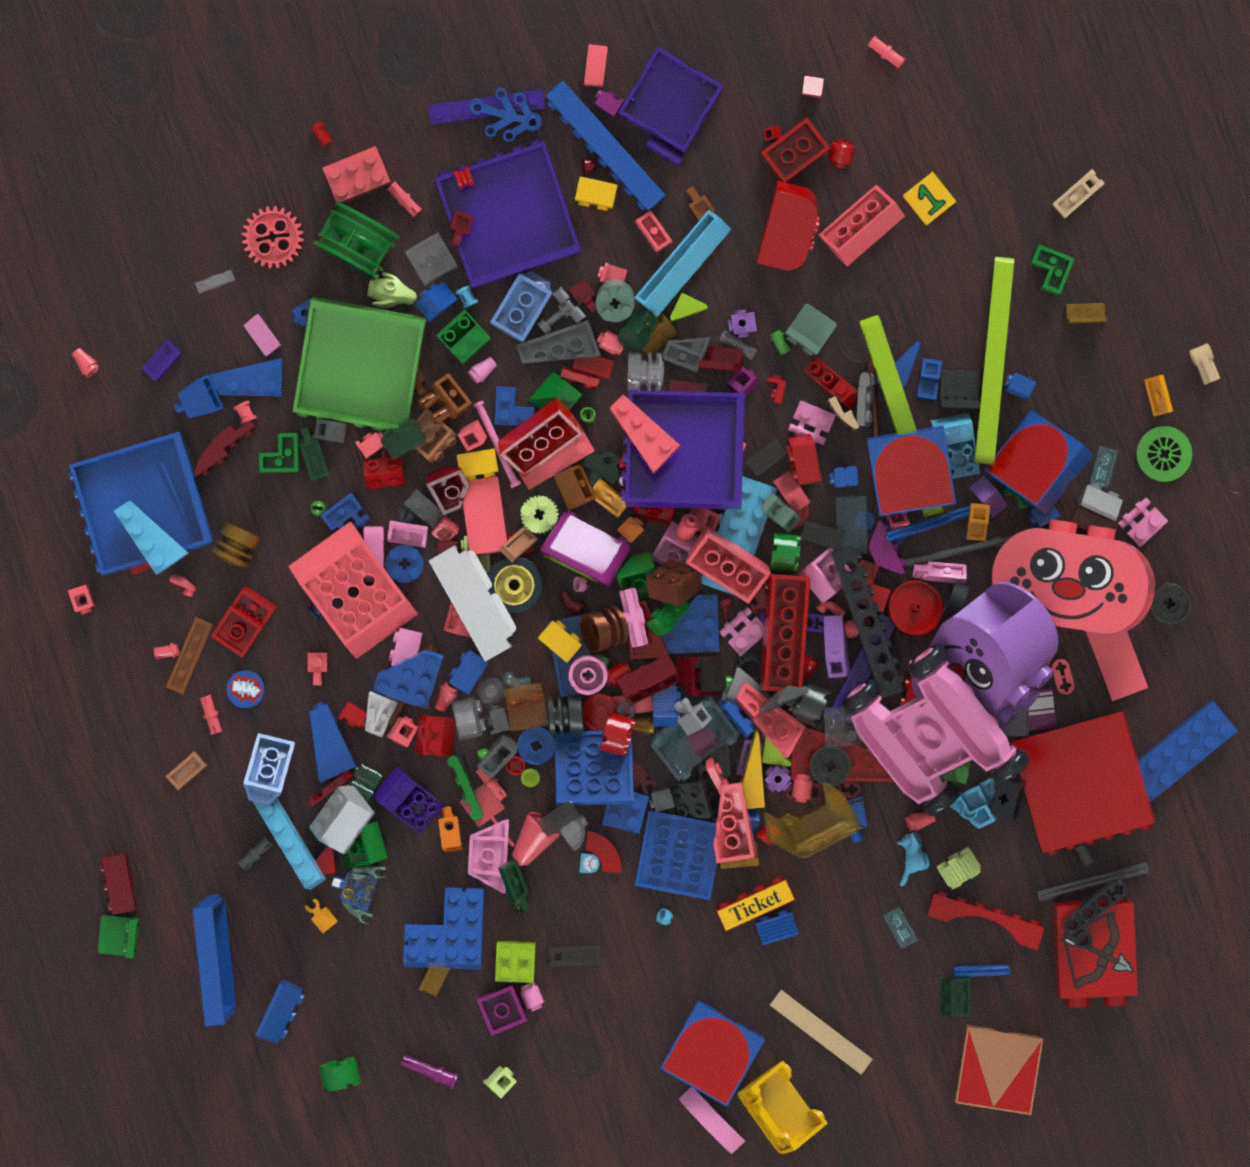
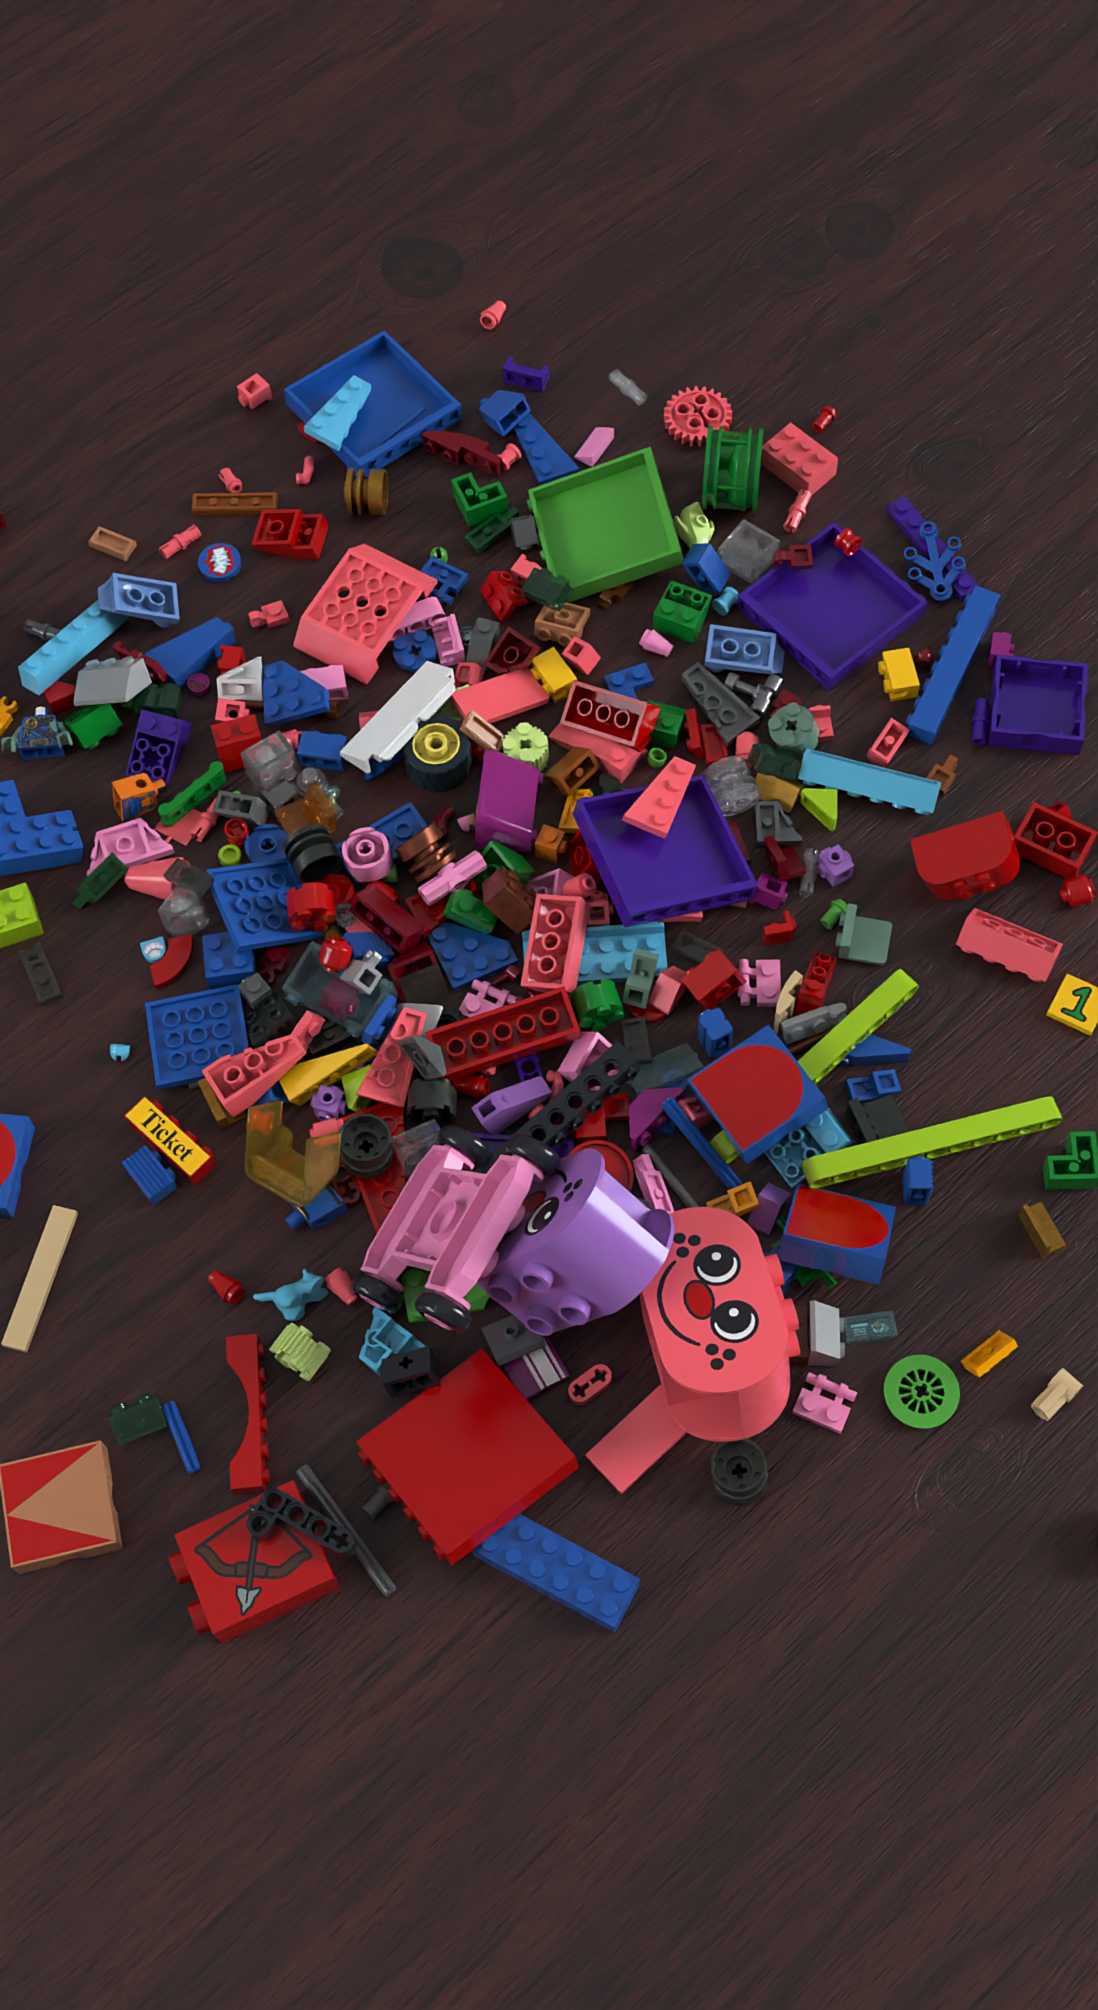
camera: 75 degrees right, 25 degrees down
(359, 747) = (199, 684): none -> magenta tile
(449, 396) = (614, 617): dark orange brick -> none
(494, 438) = (617, 655): bright pink bar -> none
(560, 641) = (395, 816): yellow brick -> none
(595, 65) = (1029, 625): coral slope -> none
(669, 731) = (335, 954): none -> red head
(885, 902) = (227, 1287): none -> red cone
(900, 927) = (201, 1319): clear light blue tile -> none

